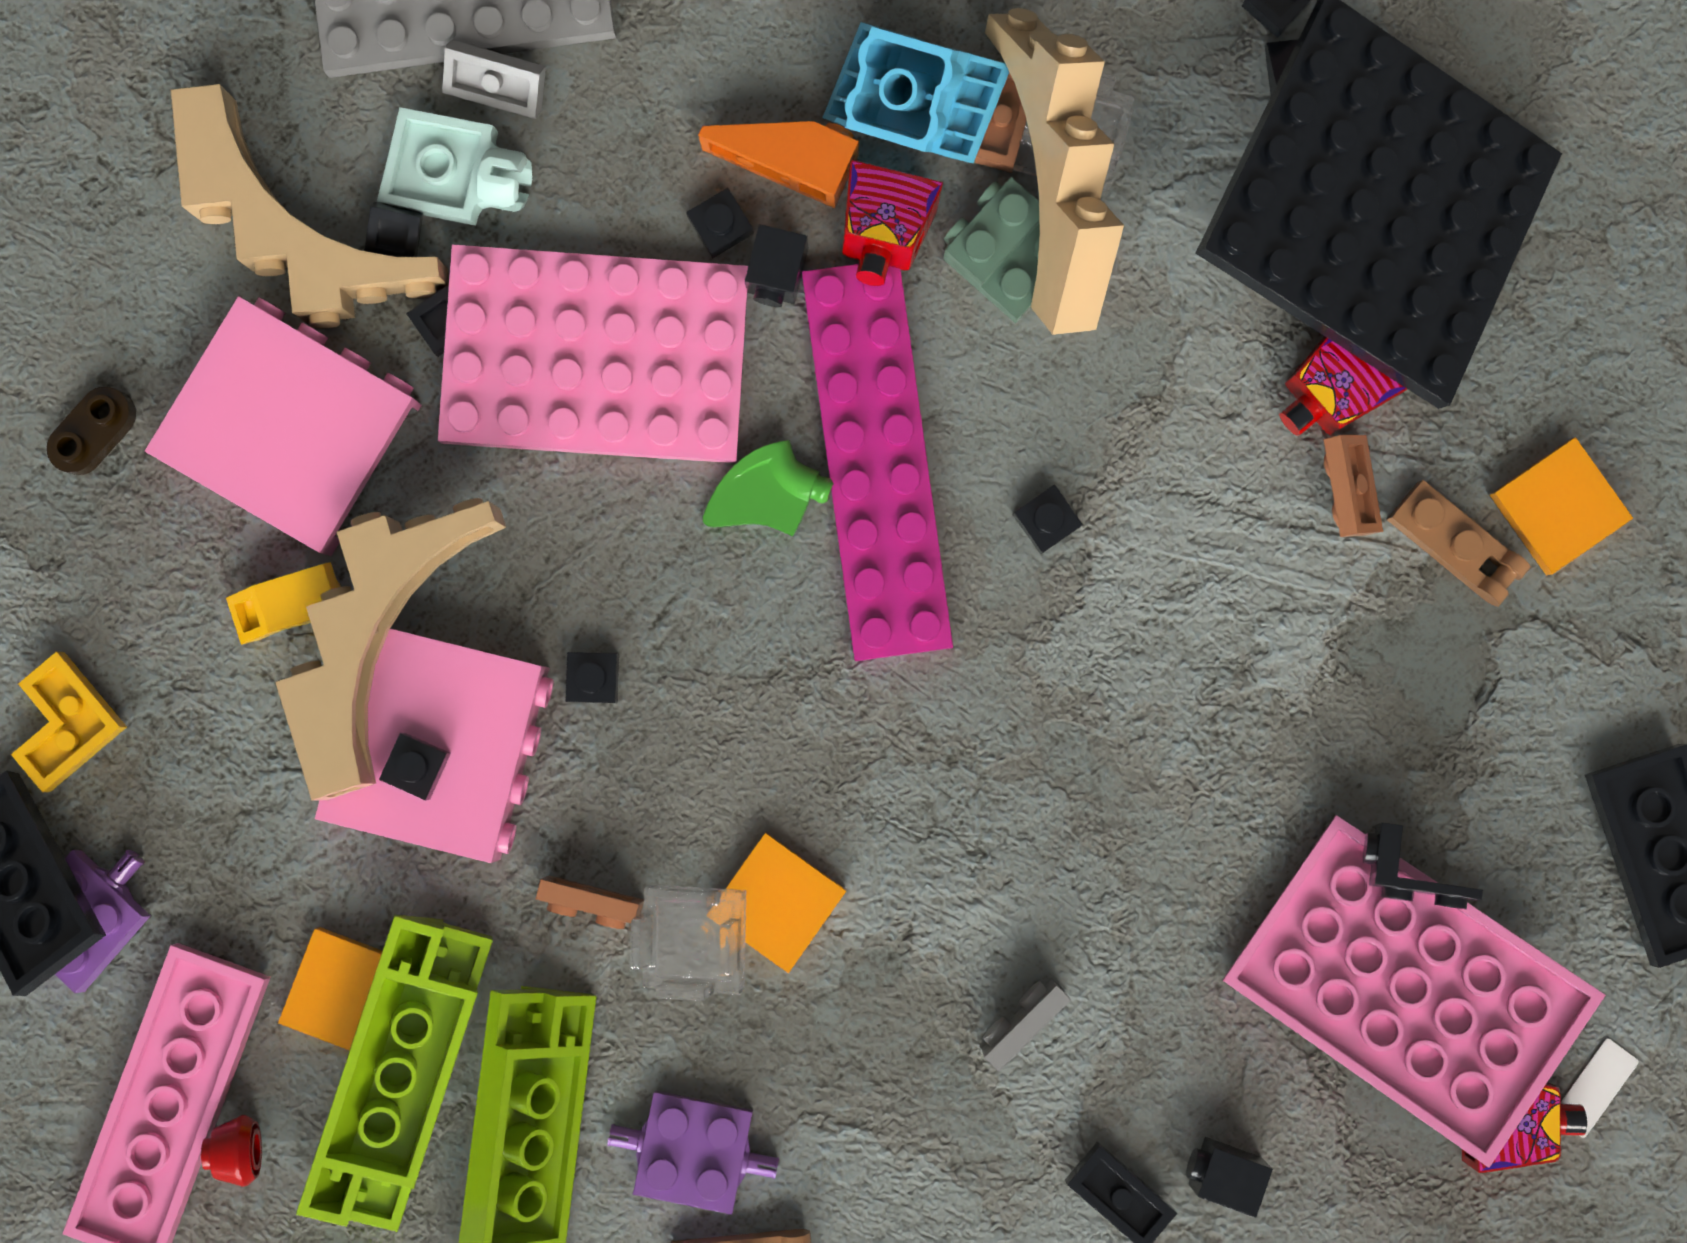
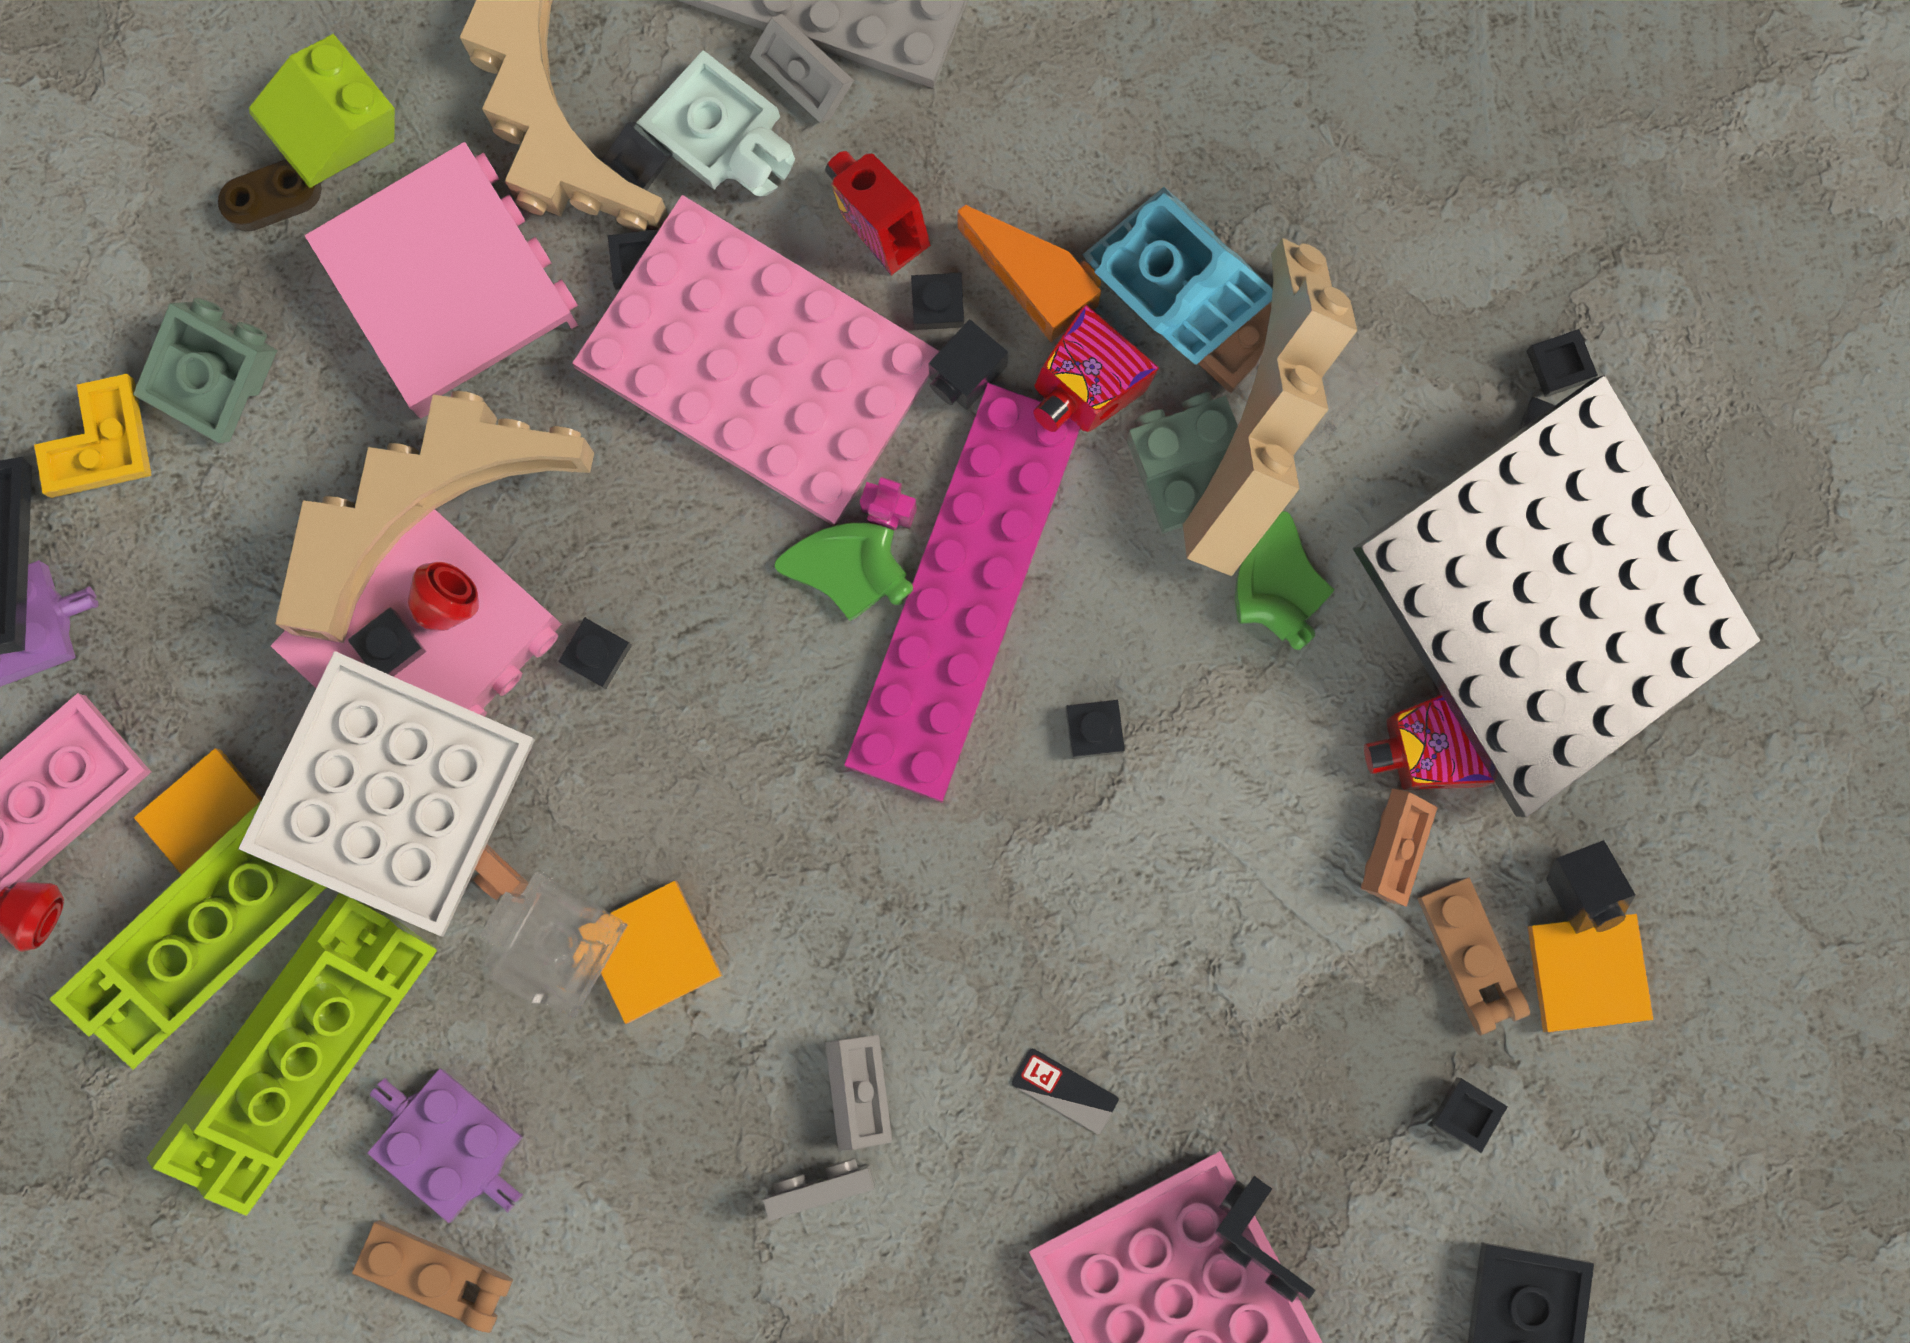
camera: 25 degrees right, 5 degrees down
(98, 333) = (324, 111): none -> lime slope
(121, 611) = (204, 368): none -> sand green plate
(279, 602) = (346, 433): yellow slope -> none
(440, 700) = (442, 596): none -> red cone
(486, 892) = (387, 794): none -> white plate
(628, 168) = (878, 209): none -> red torso
(773, 421) = (887, 504): none -> dark pink plate
(1013, 926) = (858, 1092): none -> light grey plate
(1141, 318) = (1280, 585): none -> bright green arm
(1180, 833) = (1065, 1091): none -> sticker
(1523, 676) = (1469, 1115): none -> black plate
(1530, 436) = (1591, 888): none -> black brick

